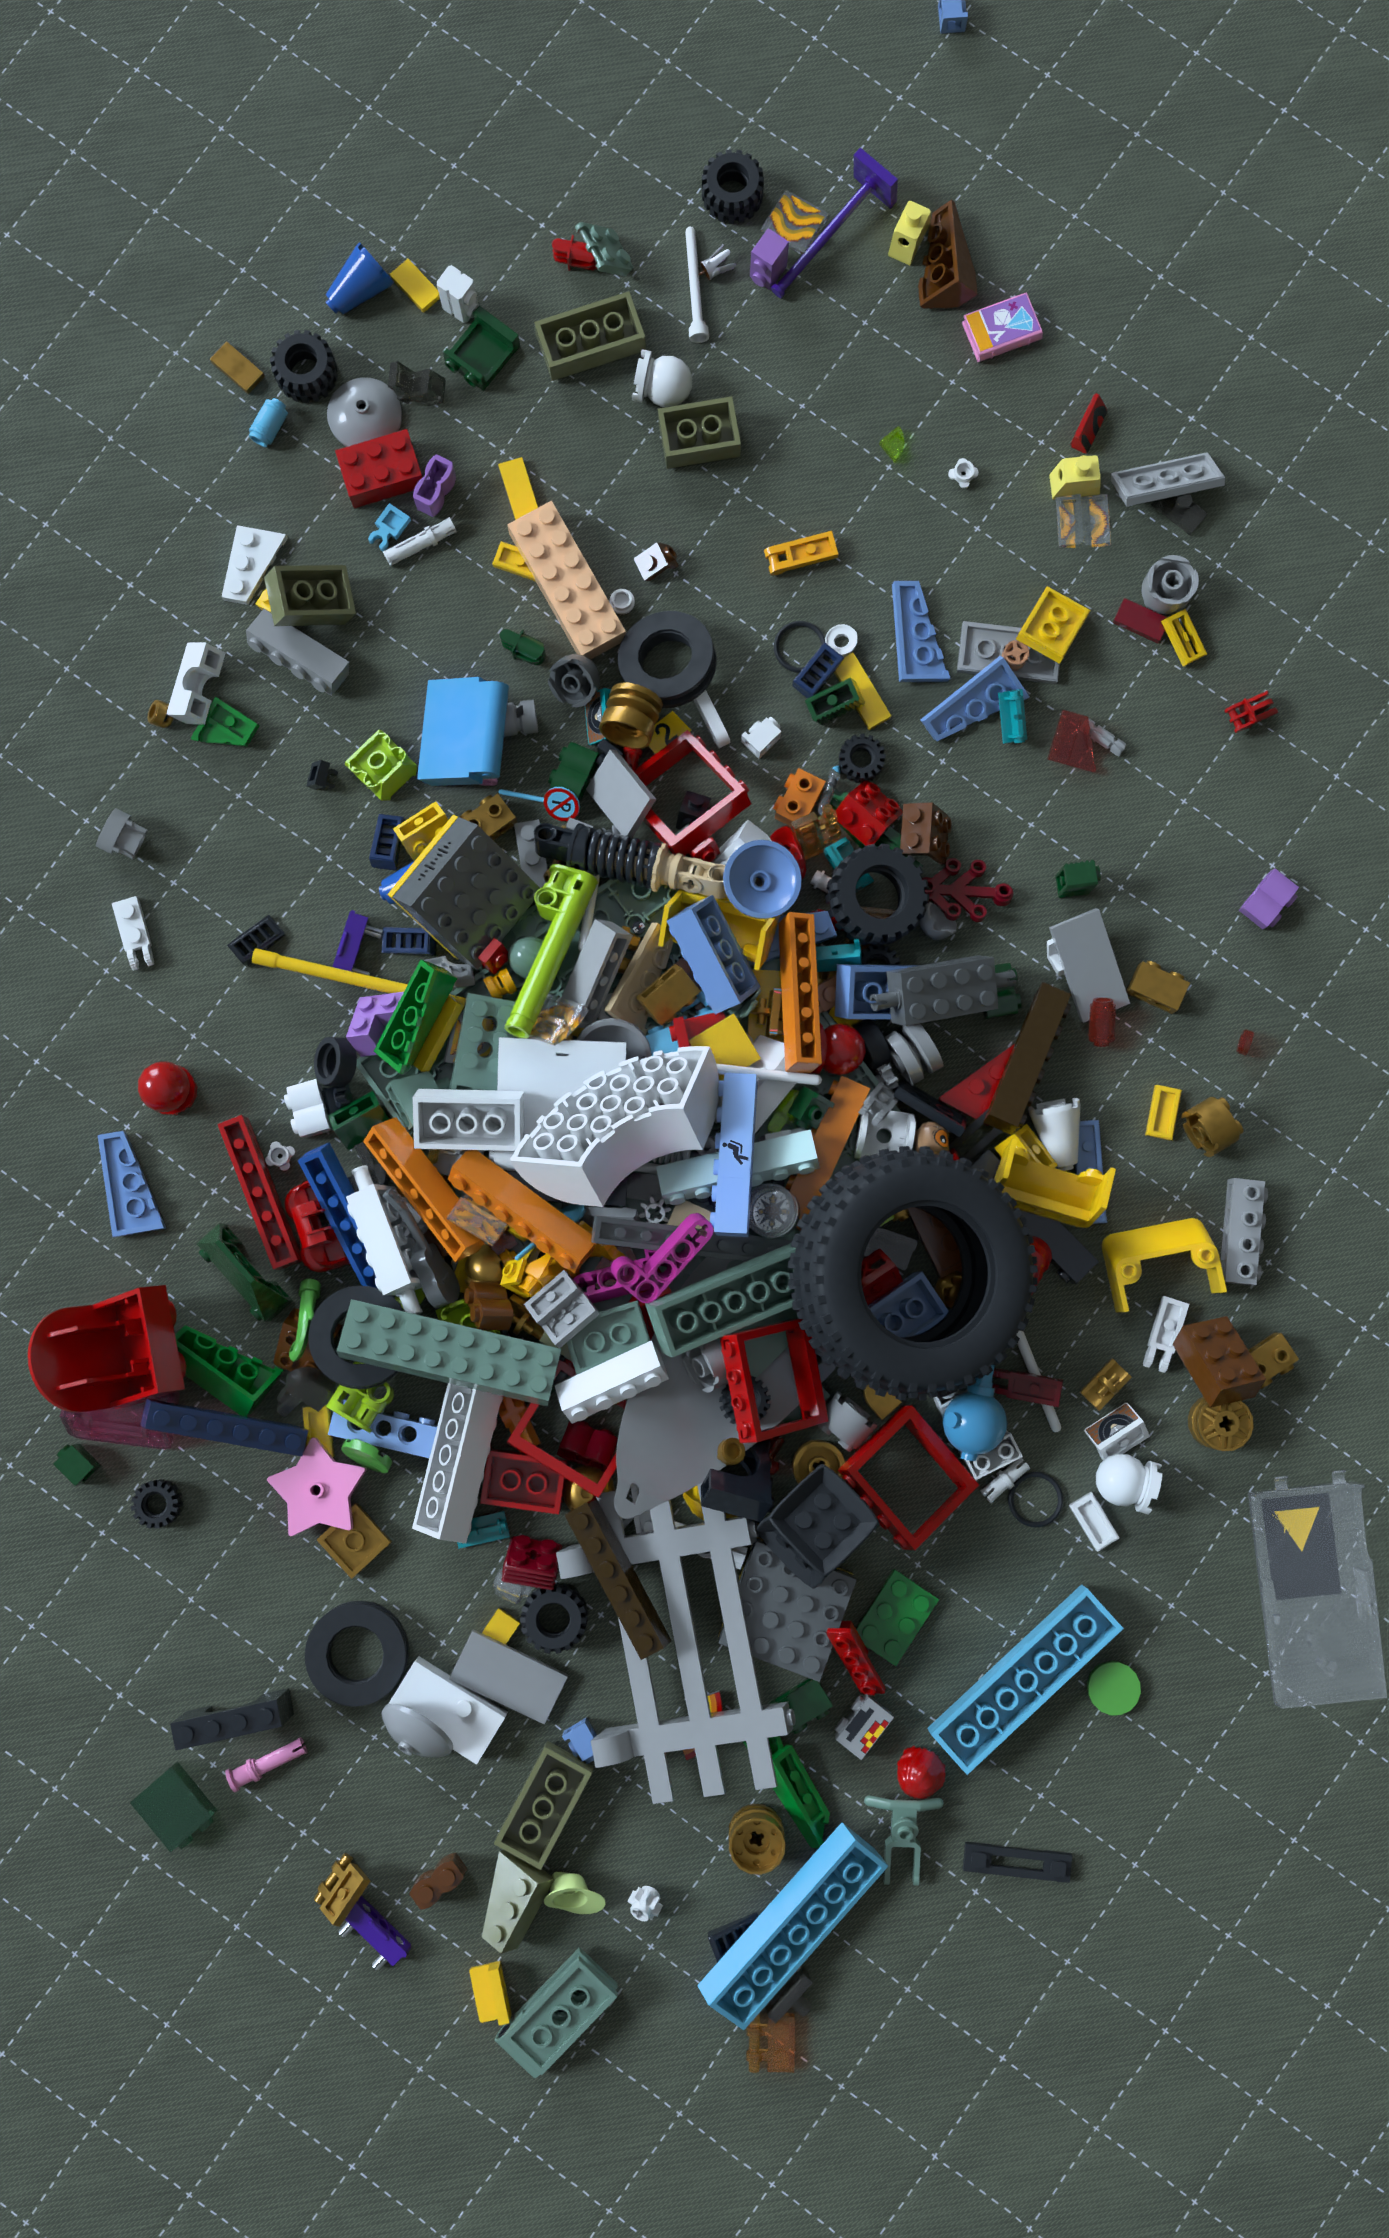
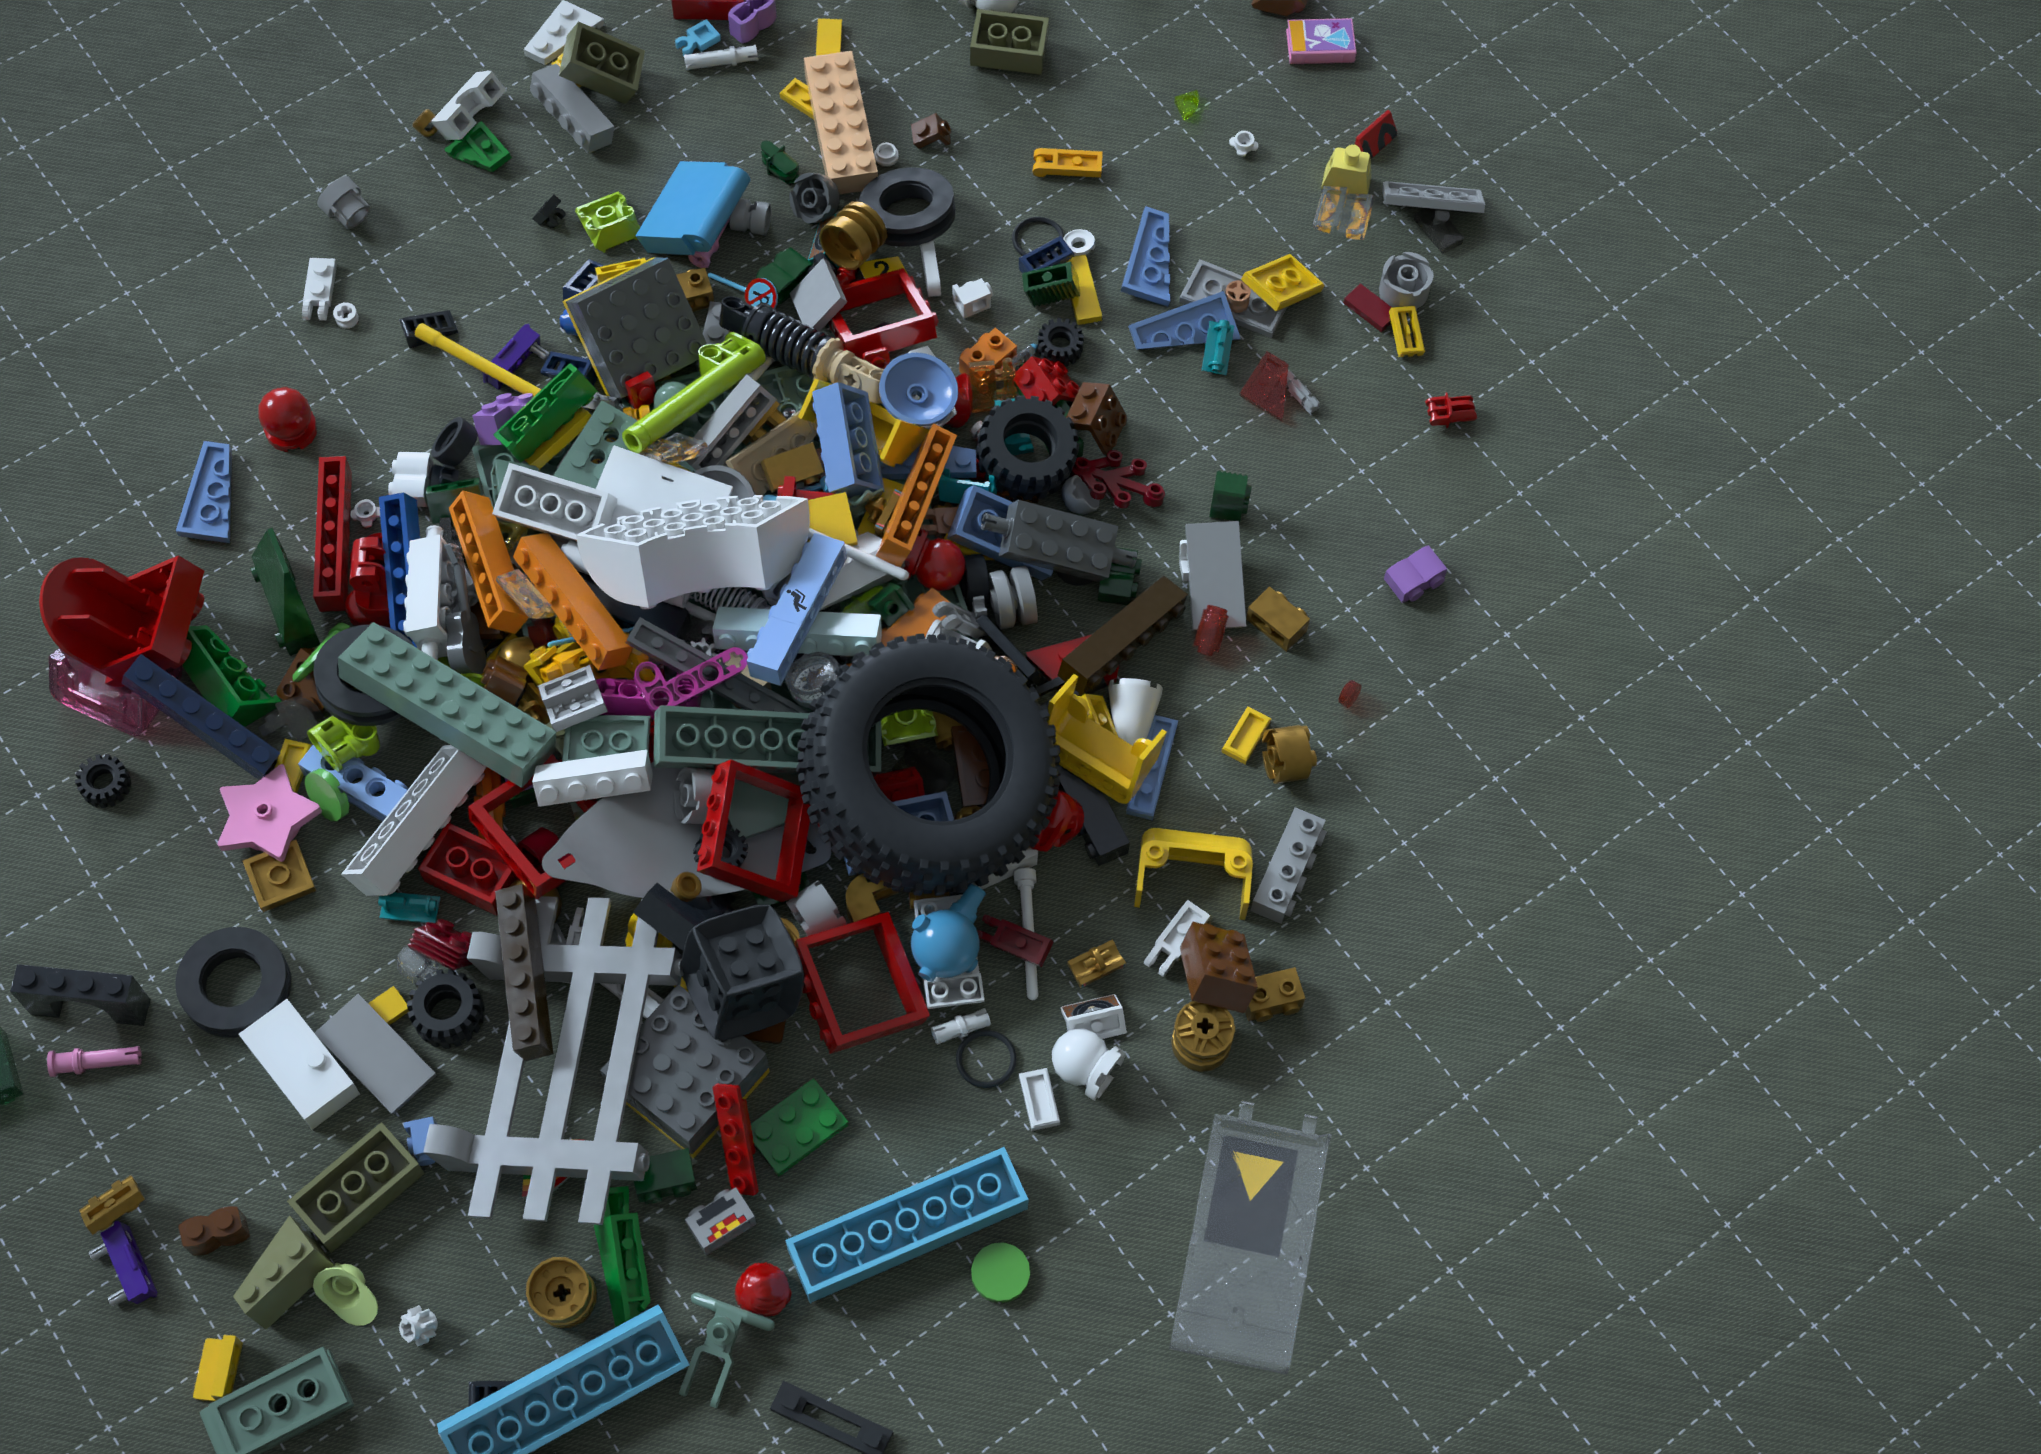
camera: 15 degrees right, 20 degrees down
(76, 1463) = (43, 720): dark green brick -> none
(180, 954) = (339, 312): none -> white bush
(415, 1732) = (258, 1065): light grey dish -> none

